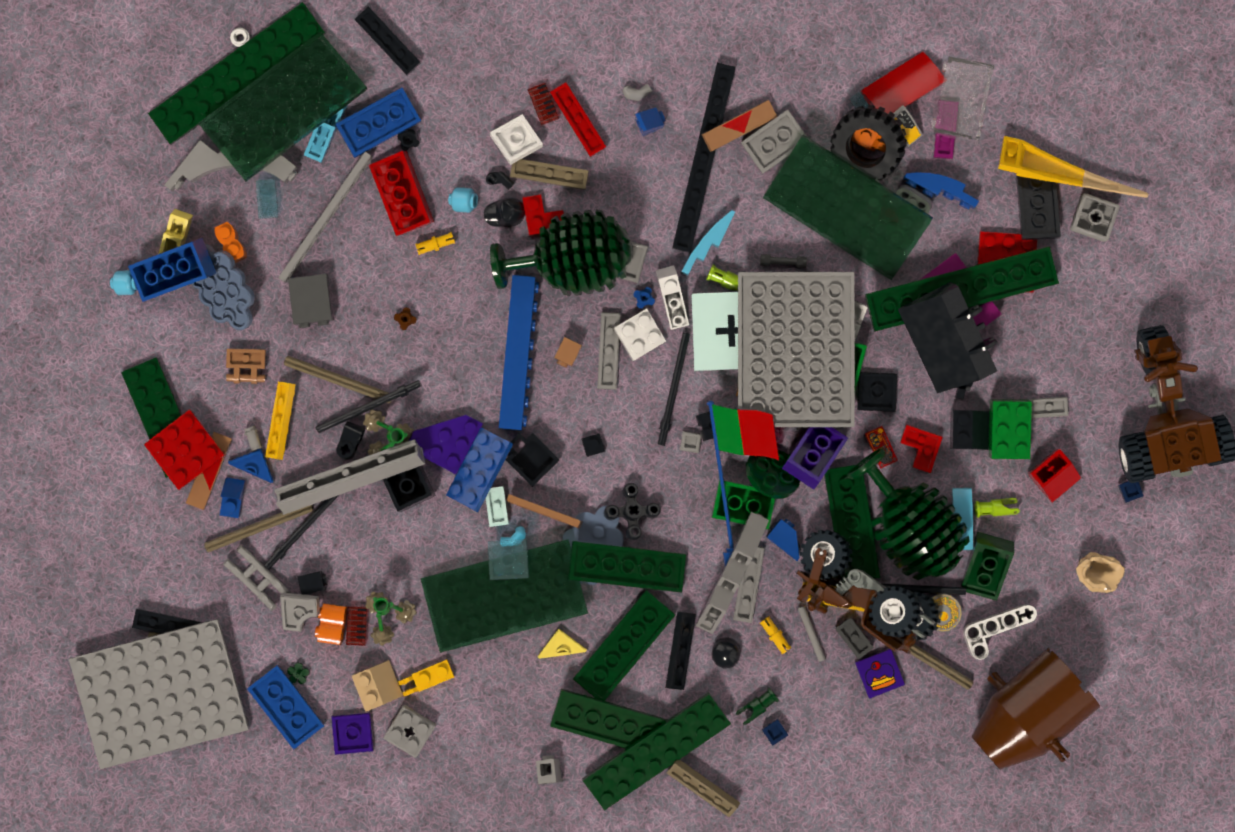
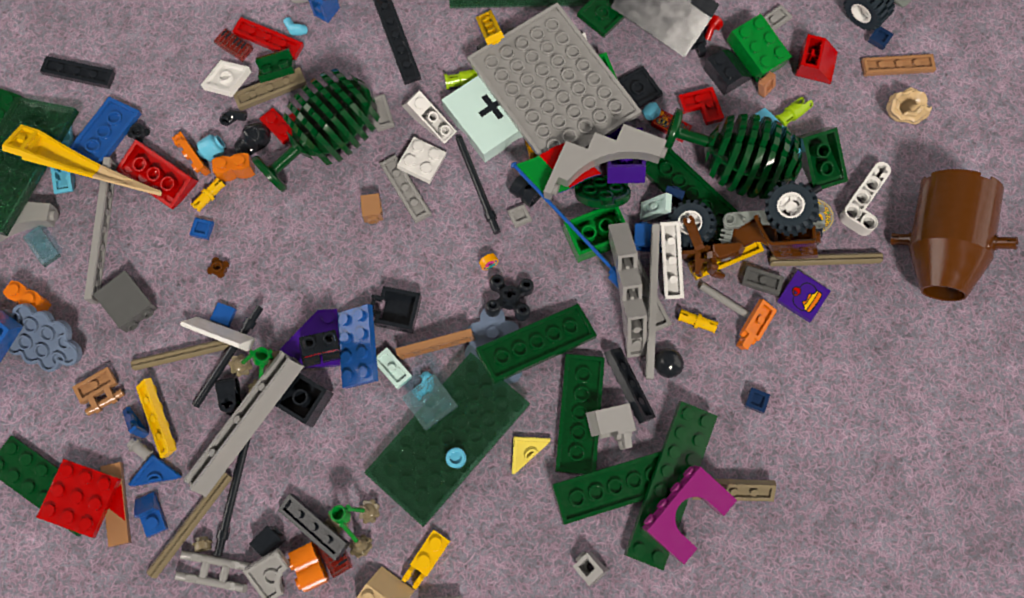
camera: 35 degrees left, 15 degrees down
(259, 550) = (202, 544): none -> dark tan plate
(260, 413) = (134, 424): none -> blue tile
(319, 123) = (44, 150): none -> yellow plate
(354, 595) = (313, 527): none -> plate
(372, 383) = (219, 333): none -> white slope
(385, 364) = (223, 314): none -> blue tile
(411, 271) = (201, 228): none -> blue tile
(442, 192) = (190, 153): none -> orange hinge
(446, 457) = (319, 344): none -> black hips
(467, 231) = (233, 167): none -> orange brick
(500, 617) = (456, 458): none -> medium azure tile
(517, 352) = (330, 235): blue brick -> none
(567, 157) = (275, 65): none -> dark green bracket
(593, 445) = (441, 268): black plate -> none
(608, 125) = (295, 29): none -> medium azure arm
(636, 467) = (488, 261): none -> light orange tile
(645, 671) = (615, 422): none -> light grey hinge
(647, 293) = (407, 137): blue plate -> none
(670, 765) = (662, 523): none -> magenta arch
(713, 238) = (429, 59): medium azure slope -> none
(746, 596) = (652, 302): none -> light grey tile
(759, 705) = (727, 386): dark green piece -> none
(762, 438) = (576, 159): none -> light grey arch
(779, 252) = (489, 28): none -> yellow plate
(787, 572) = (672, 260): none -> white slope
(809, 516) = (656, 207): none -> light aqua plate
(820, 670) = (756, 324): none -> orange hinge
(832, 516) = (677, 194): none -> dark blue plate
(872, 423) = (651, 111): none -> medium azure tile
(991, 379) = (714, 24): none -> red plate
(992, 466) = (766, 84): none -> nougat plate
(1127, 525) = (898, 65): none -> medium nougat tile

